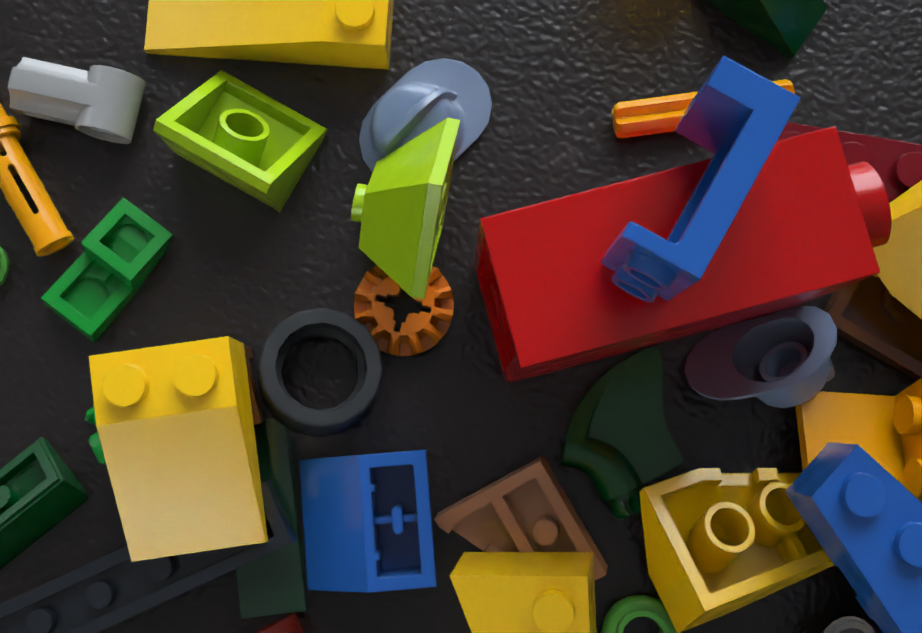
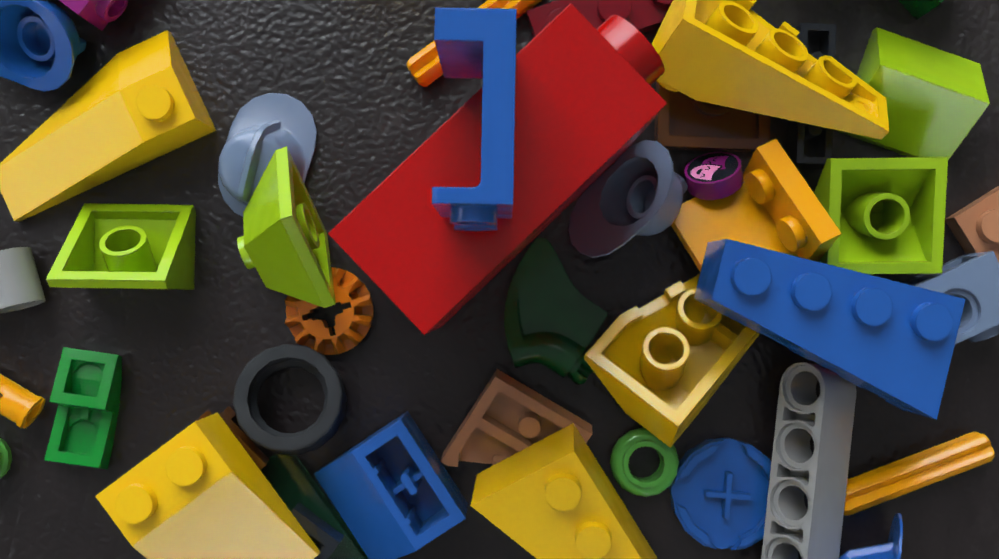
camera: 20 degrees left, 5 degrees up
(865, 381) = (714, 175): none -> tile

